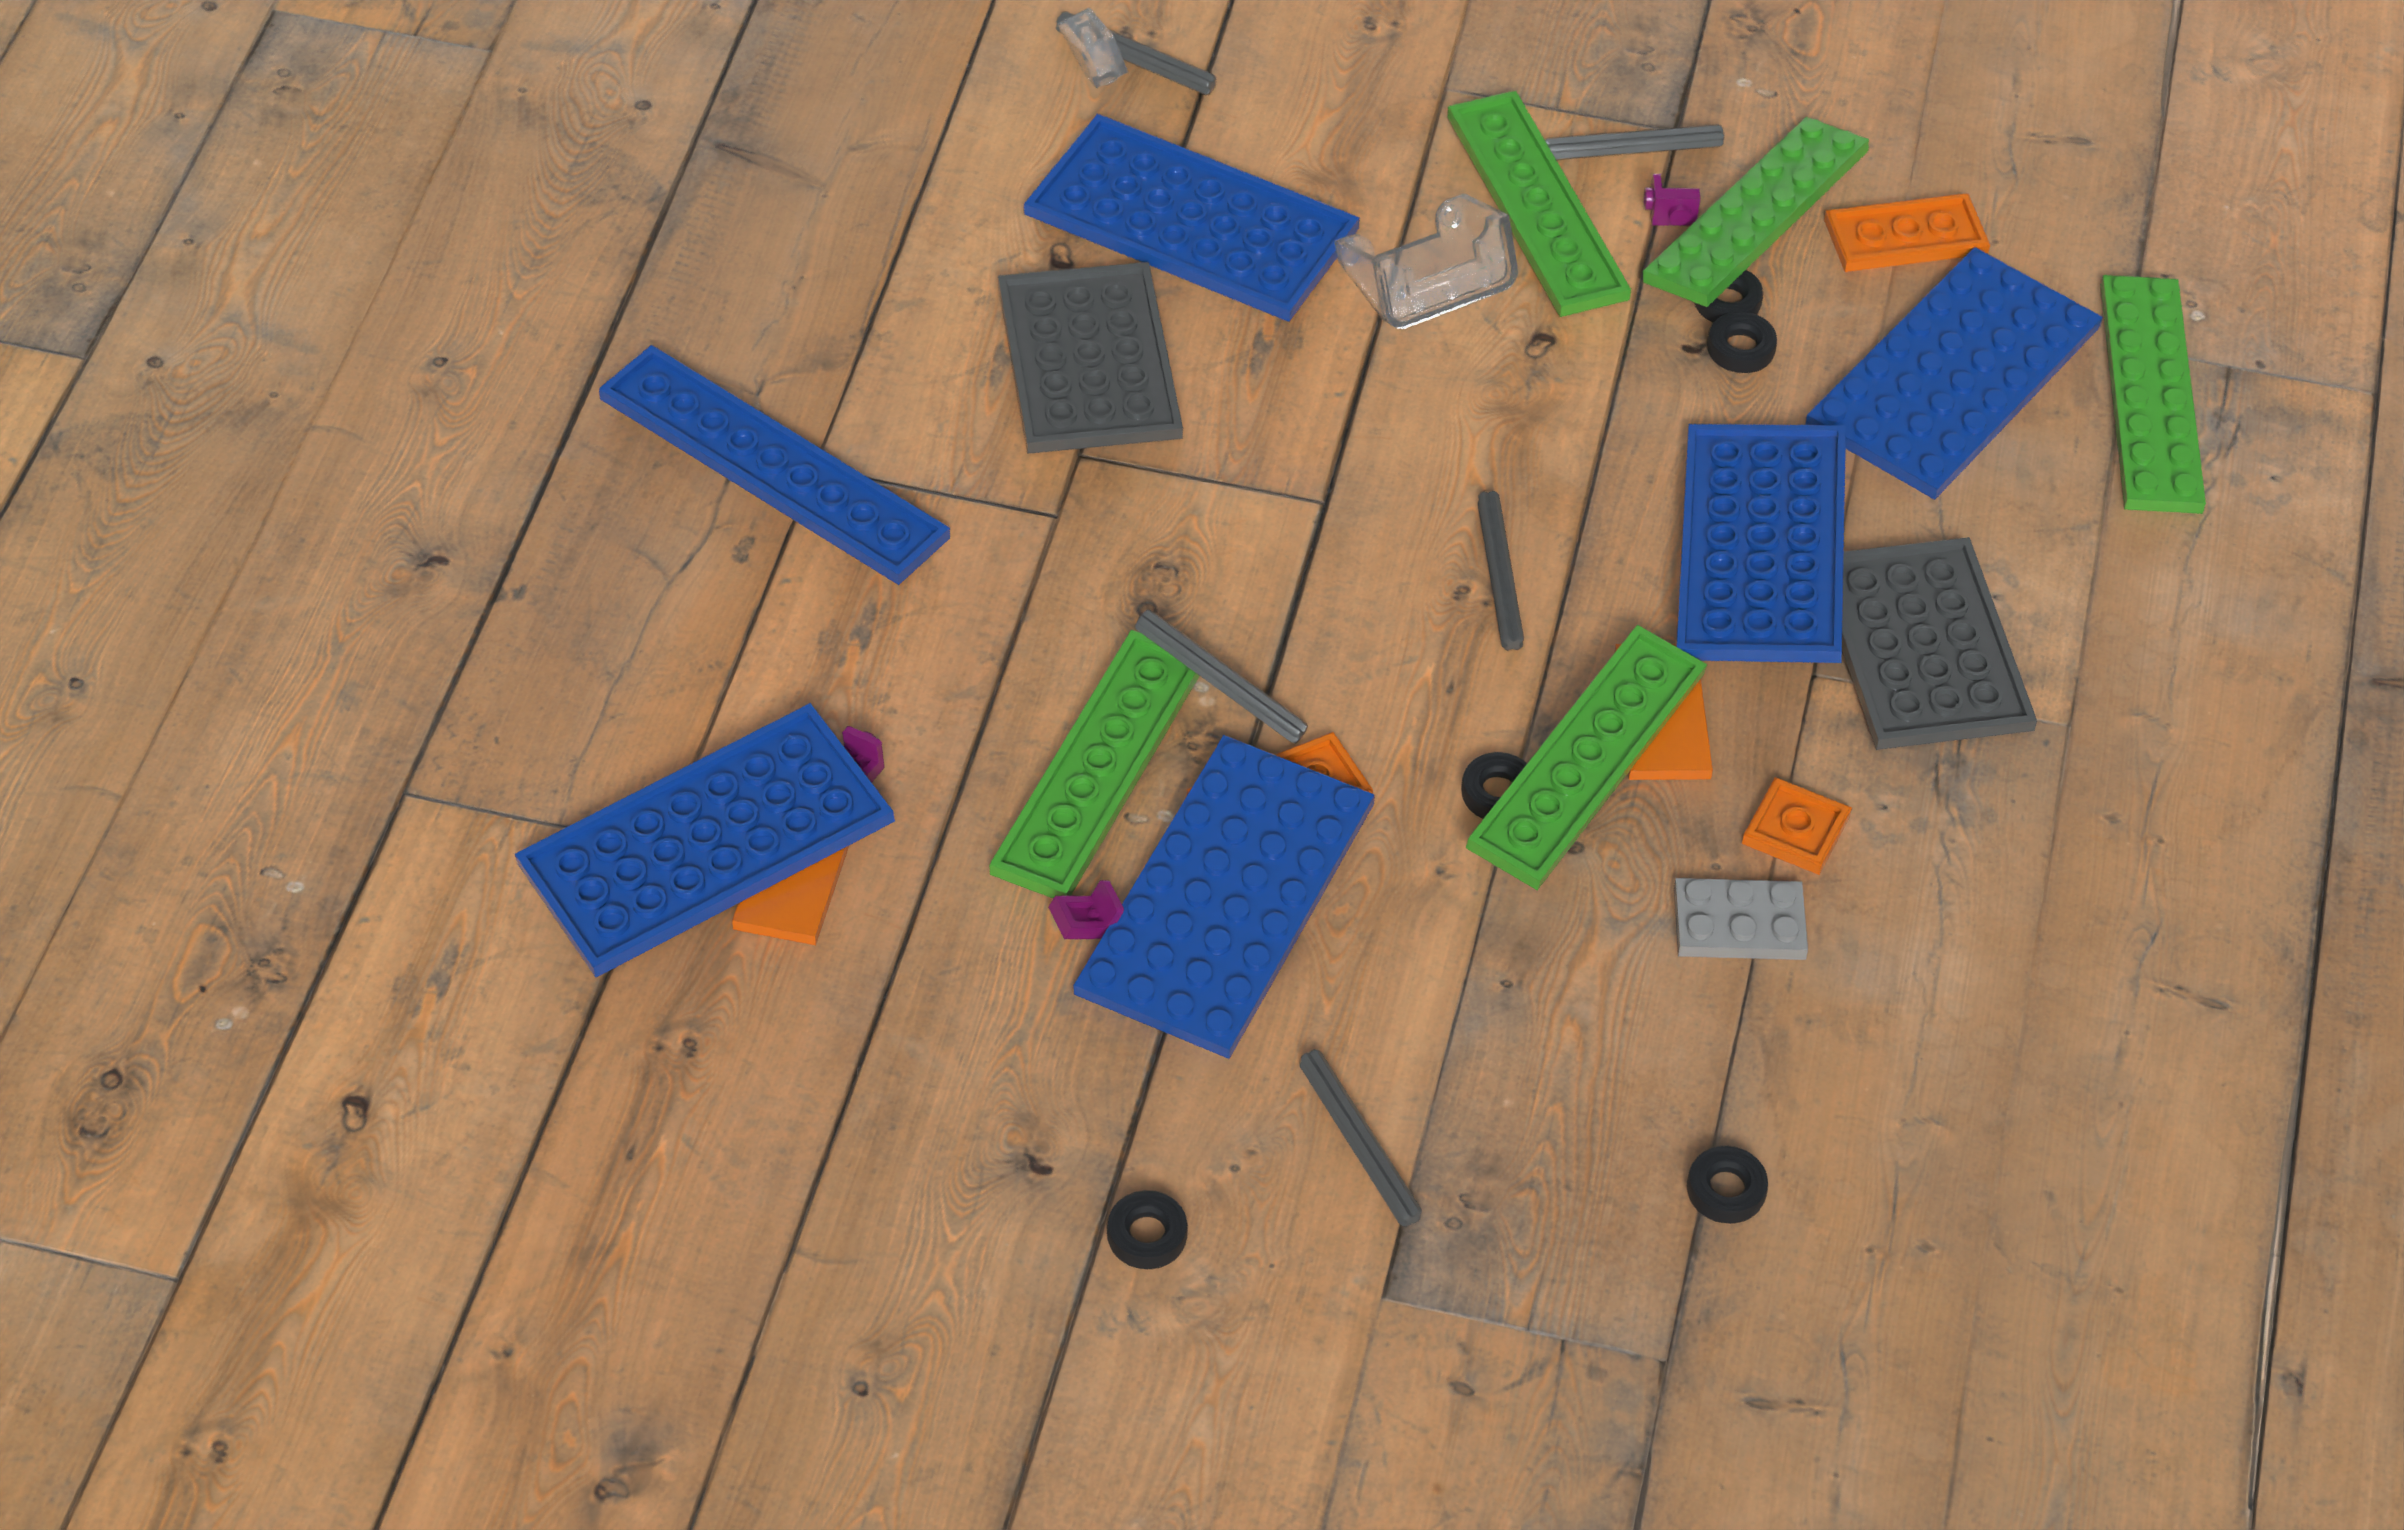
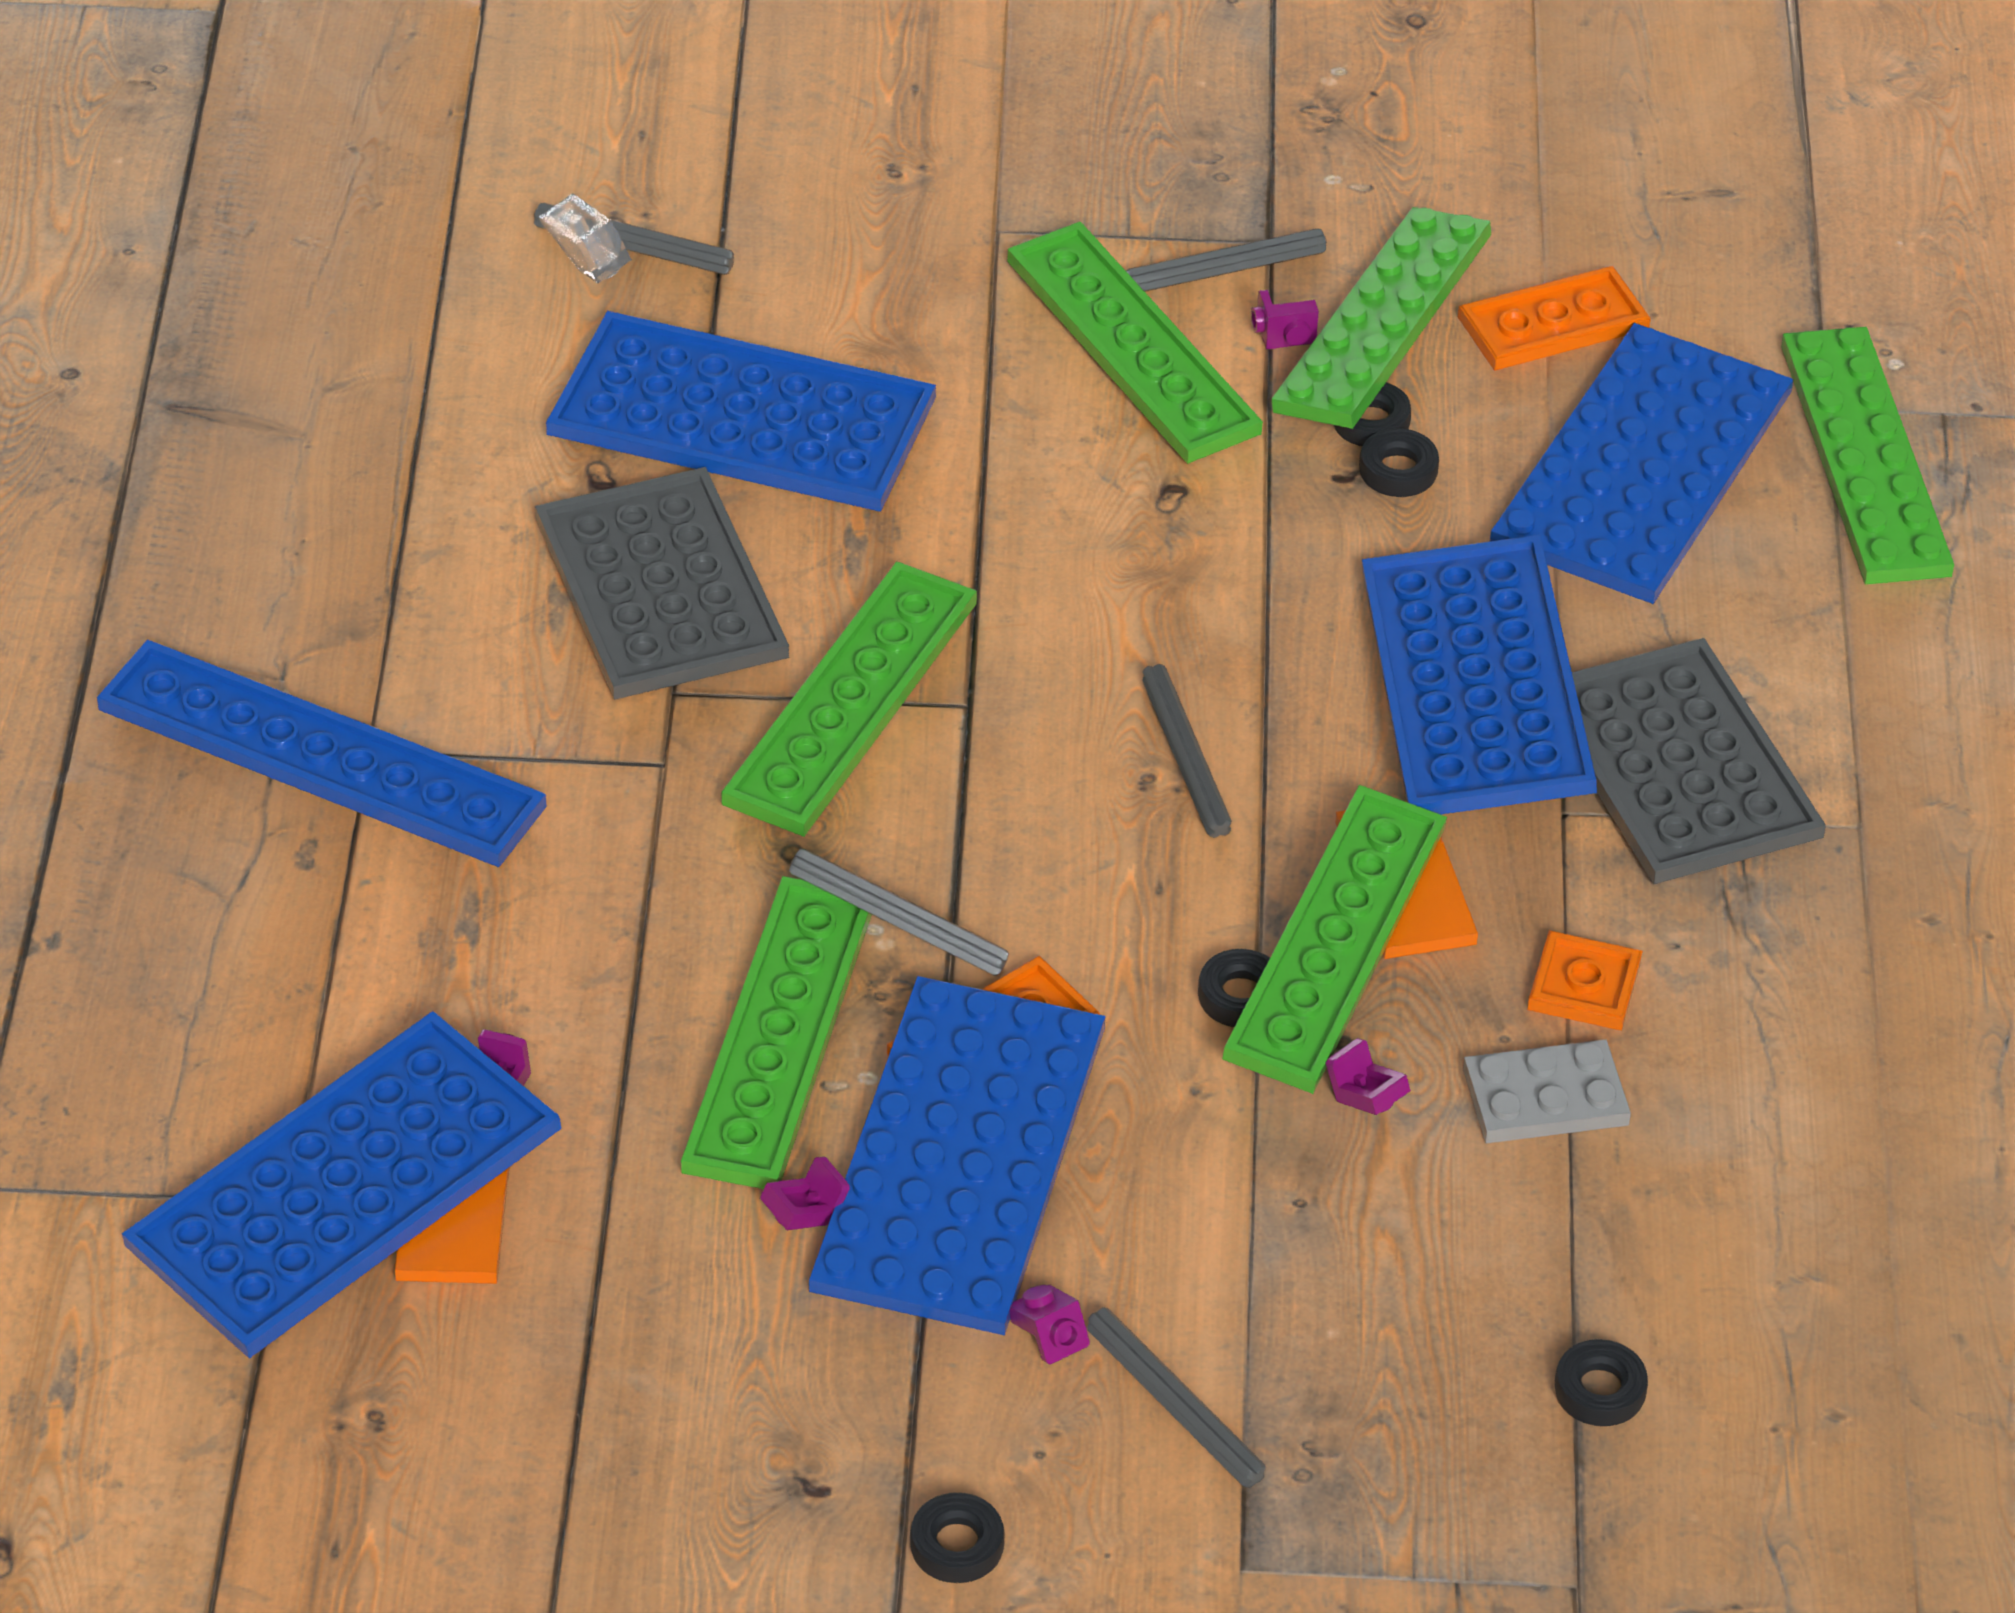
camera: 10 degrees left, 5 degrees down
(1224, 482) = (849, 699): none -> bright green plate
(1270, 1054) = (1053, 1320): none -> magenta bracket
(1439, 273) = (1060, 421): clear windscreen -> none
(1582, 886) = (1363, 1083): none -> magenta bracket

